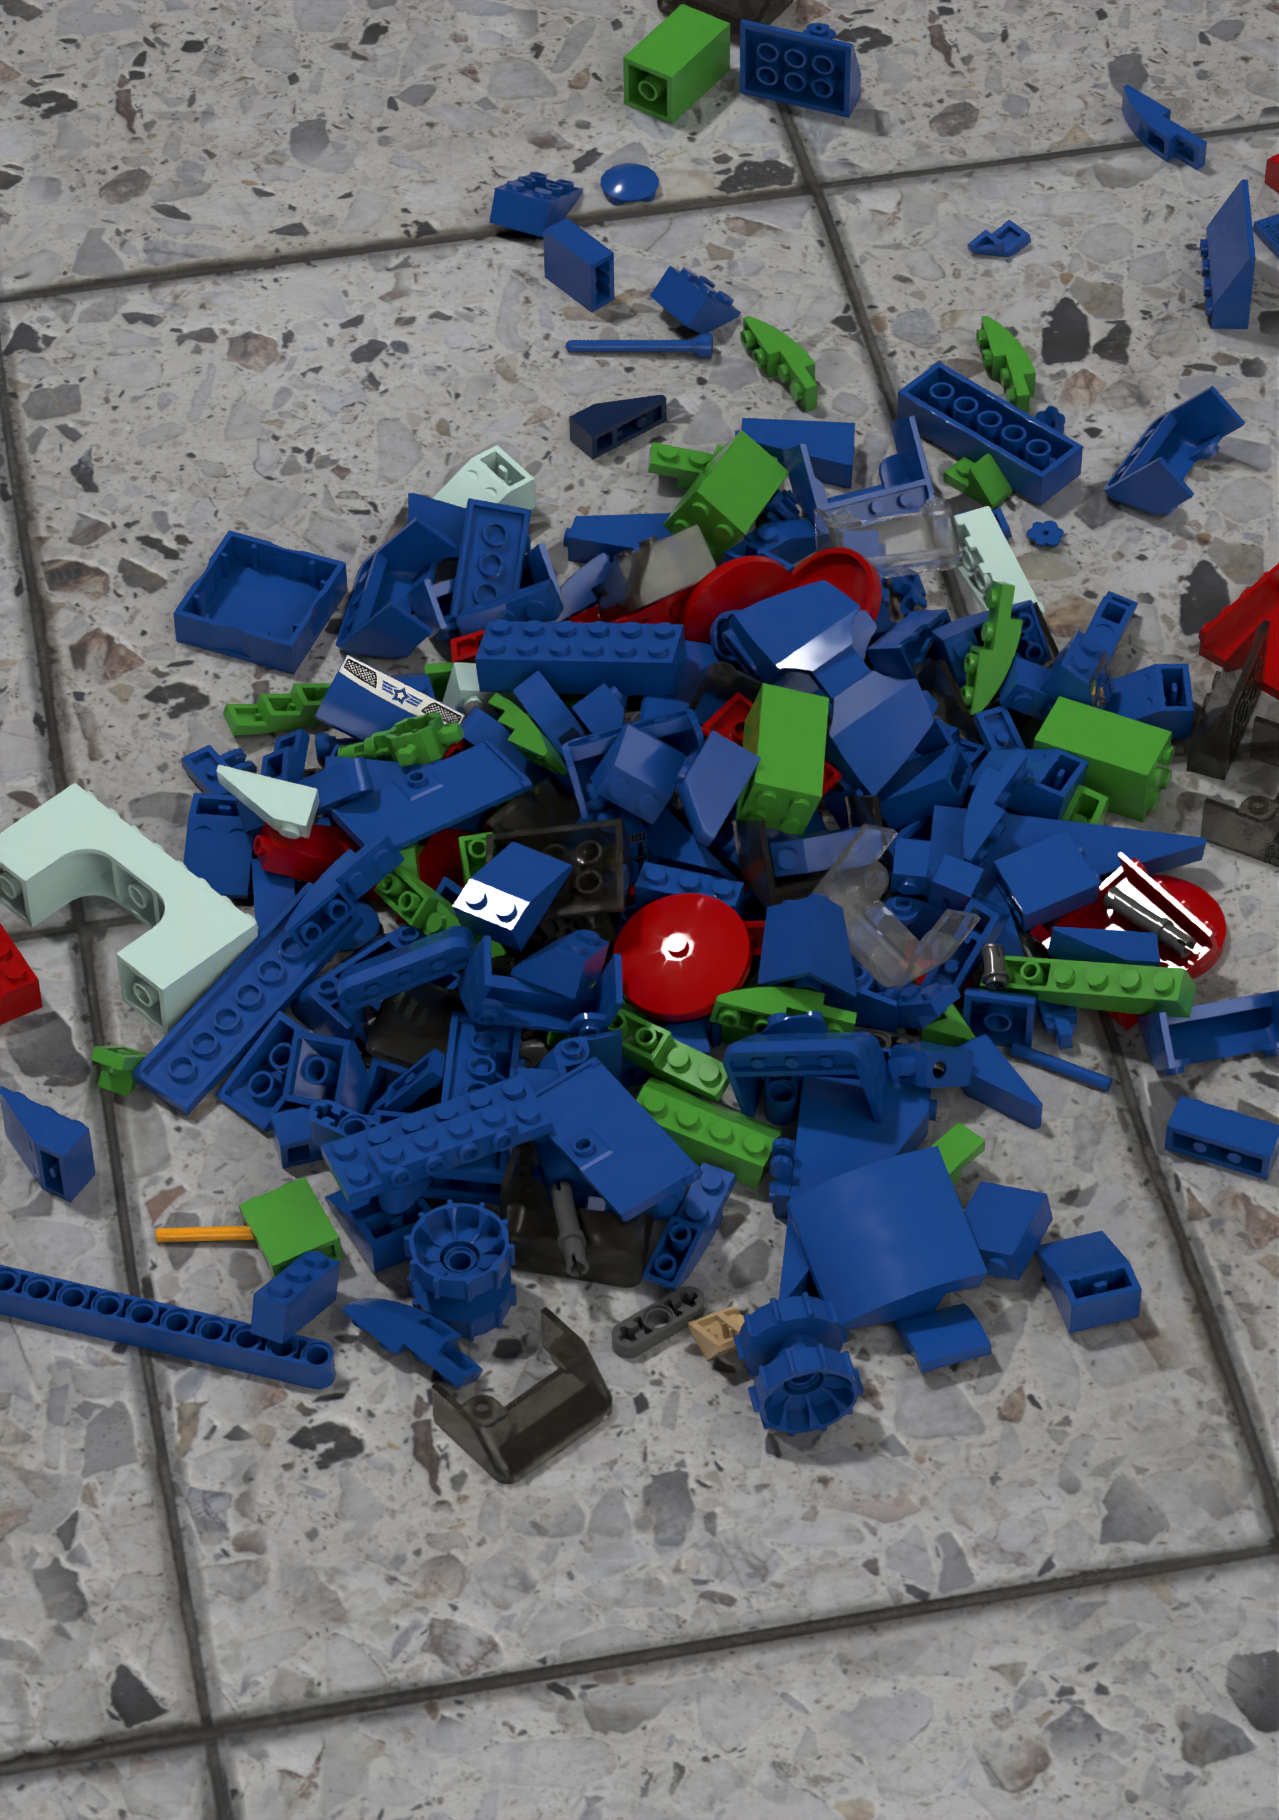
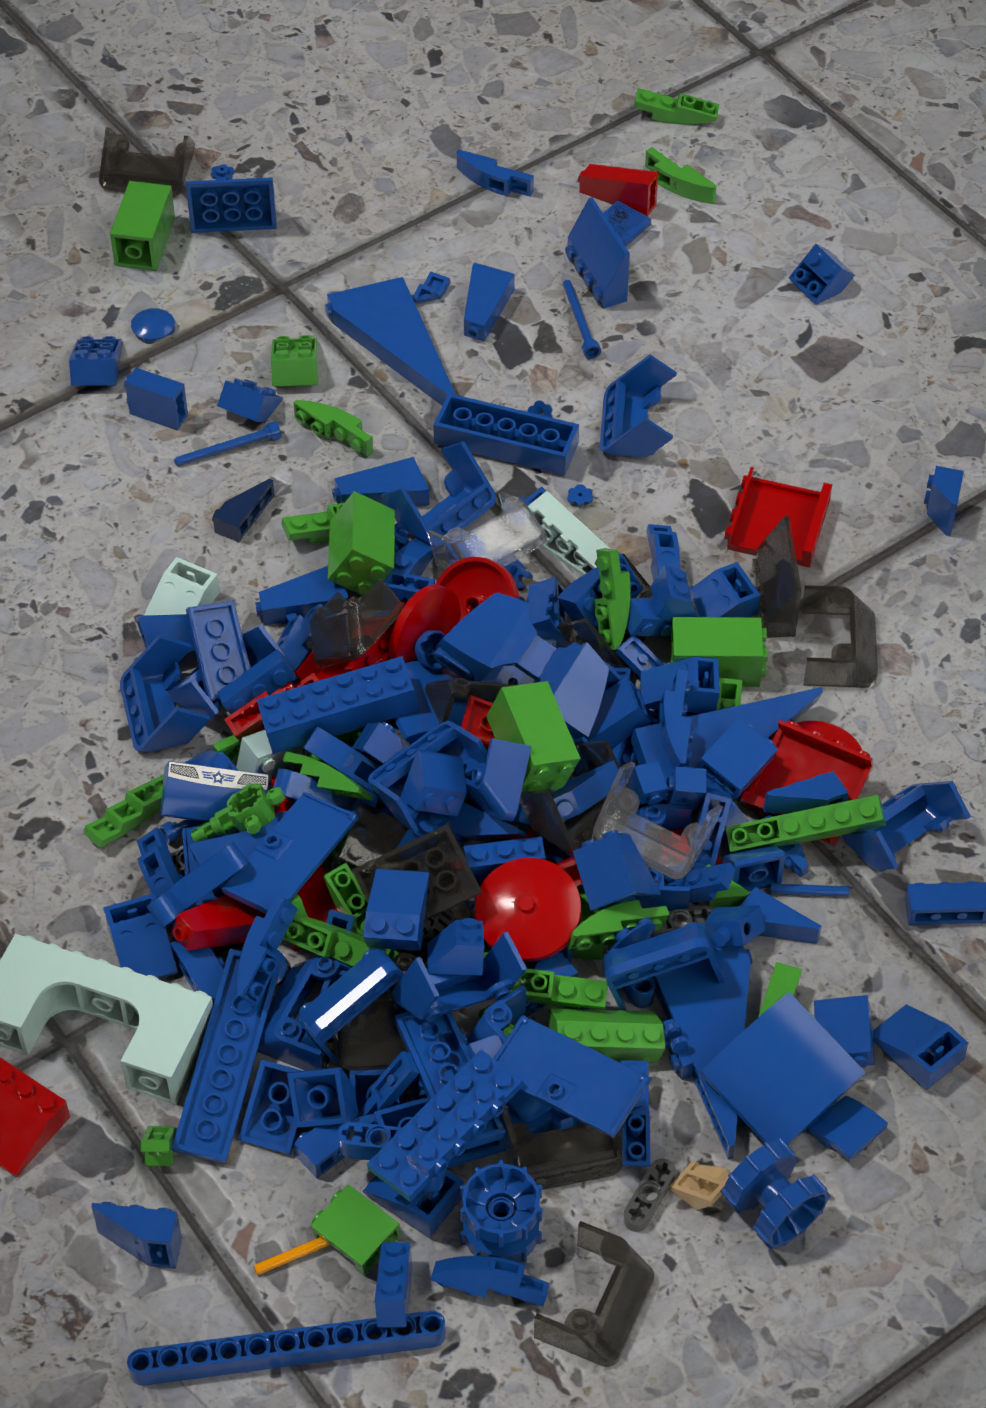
camera: 25 degrees left, 5 degrees up
(203, 765) = (101, 883): blue hinge -> none
(261, 602) = (64, 735): blue tile -> none
(279, 803) = (185, 899): light aqua slope -> none
(571, 1238) = (567, 1159): dark grey pin -> none
(776, 274) = (294, 361): none -> bright green slope
(918, 270) = (390, 327): none -> blue slope
(979, 480) = (517, 471): bright green slope -> none
(994, 969) = (740, 837): dark grey pin -> none
(1007, 362) = (487, 375): bright green slope -> none
(1060, 272) = (486, 299): none -> blue slope
(1149, 922) = (821, 763): dark grey pin -> none
(1163, 366) = (590, 346): none -> blue piece

